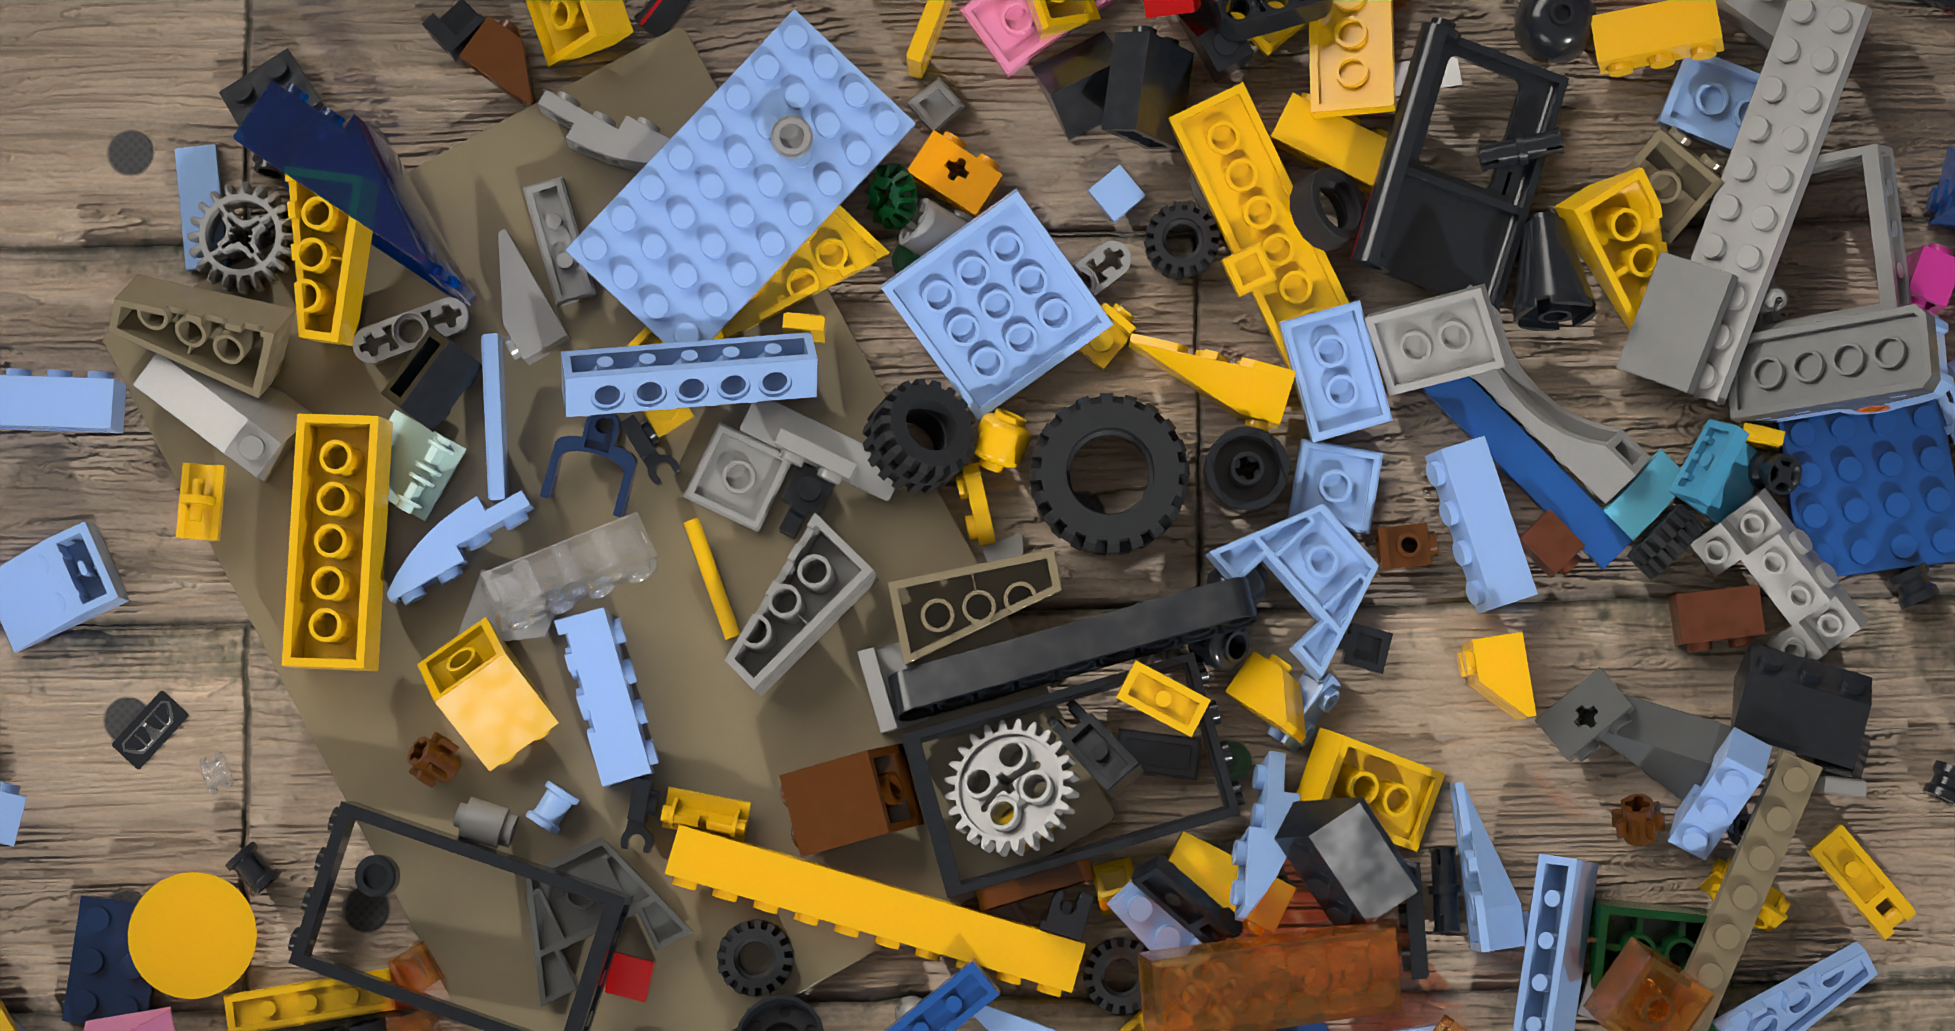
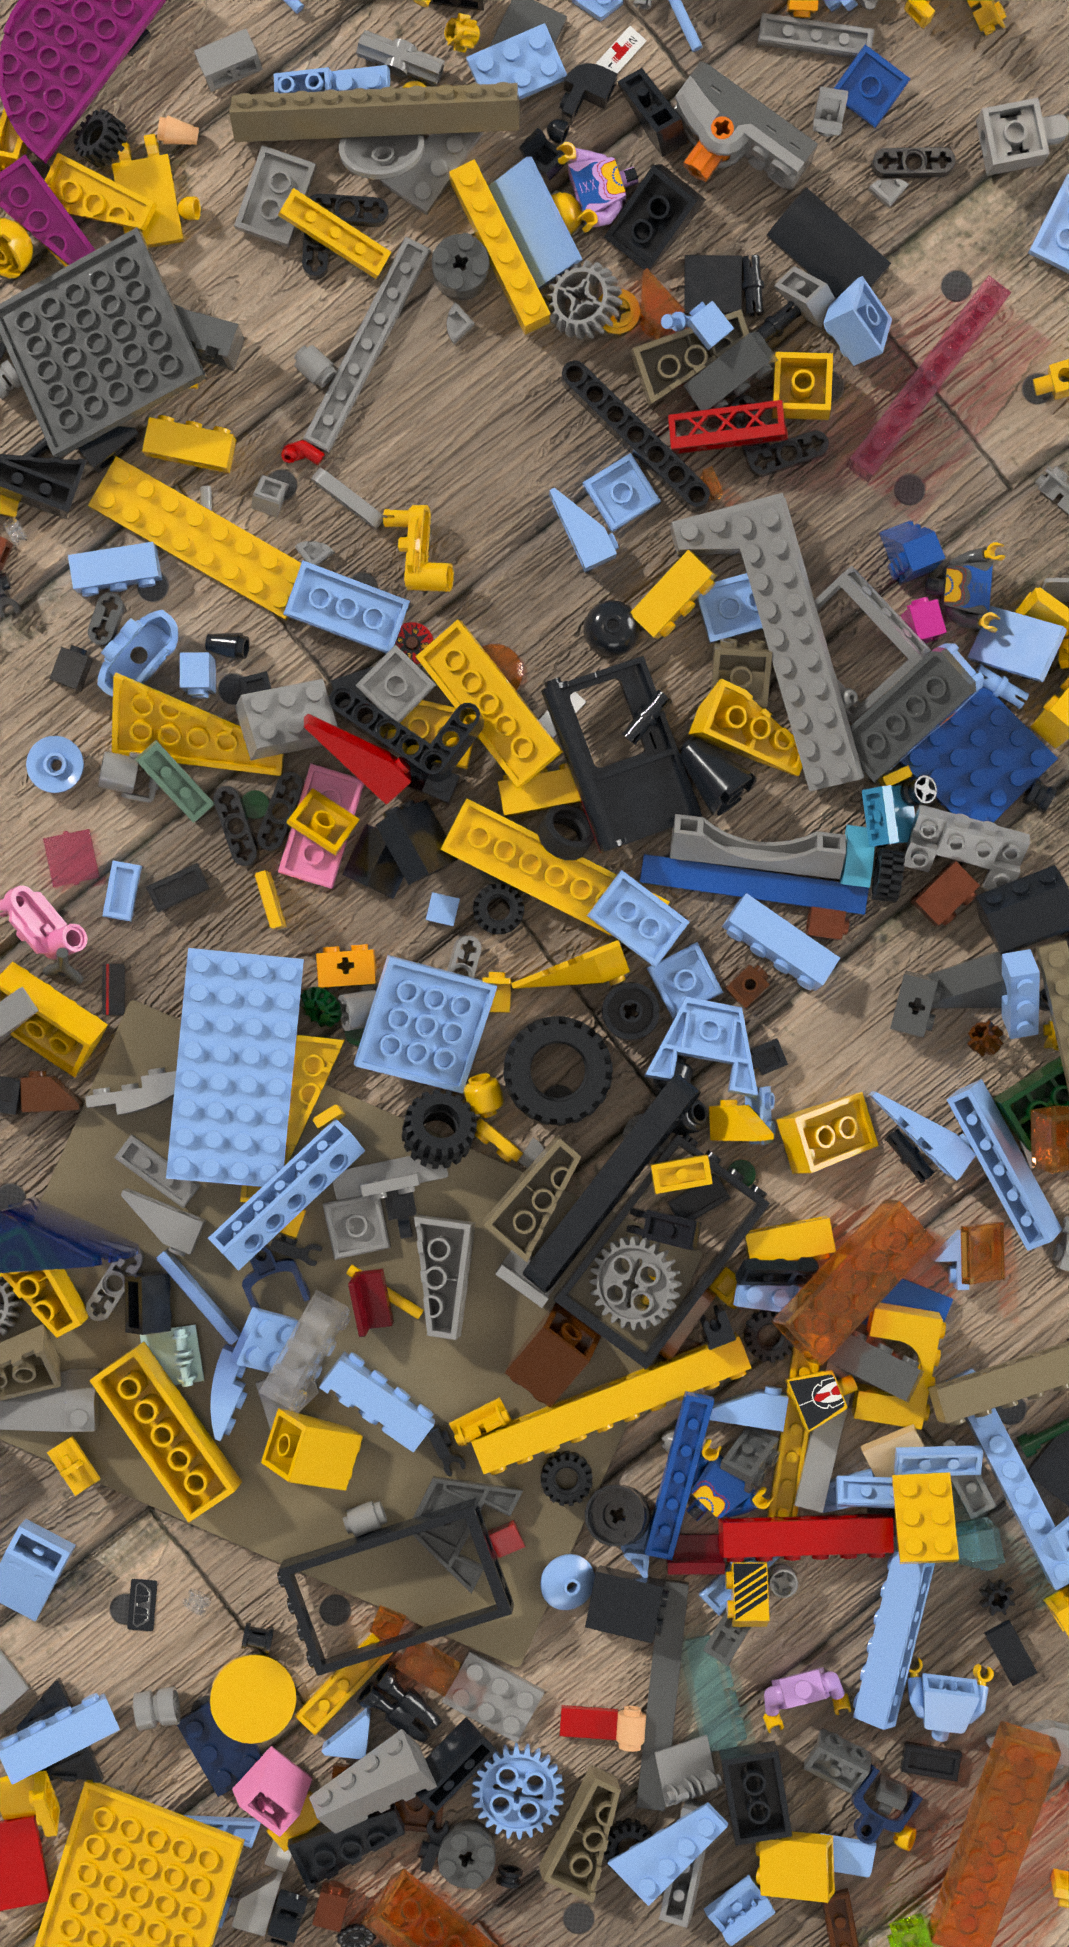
camera: 40 degrees left, 5 degrees up
(77, 862) = (152, 1708): none -> light grey wheel
(377, 875) = (329, 1595): black tile -> none
(433, 759) = (310, 1506): reddish brown gear -> none
(529, 519) = (262, 1339): none -> light blue plate
(552, 807) = (394, 1482): light blue bush -> none
(688, 574) = (370, 1300): none -> dark red panel
(791, 137) = (242, 1021): light grey tile -> none
(936, 105) = (306, 935): light grey tile -> none
(1248, 269) = (548, 899): yellow tile -> none
(1257, 851) = (797, 1213): light blue slope -> none
(1345, 859) = (845, 1185): black slope -> none
(1412, 918) = (902, 1184): black hinge -> none
(1437, 340) = (681, 861): light grey plate -> none
(1499, 672) = (850, 1016): yellow slope -> none
(1677, 322) = (805, 750): tile -> none

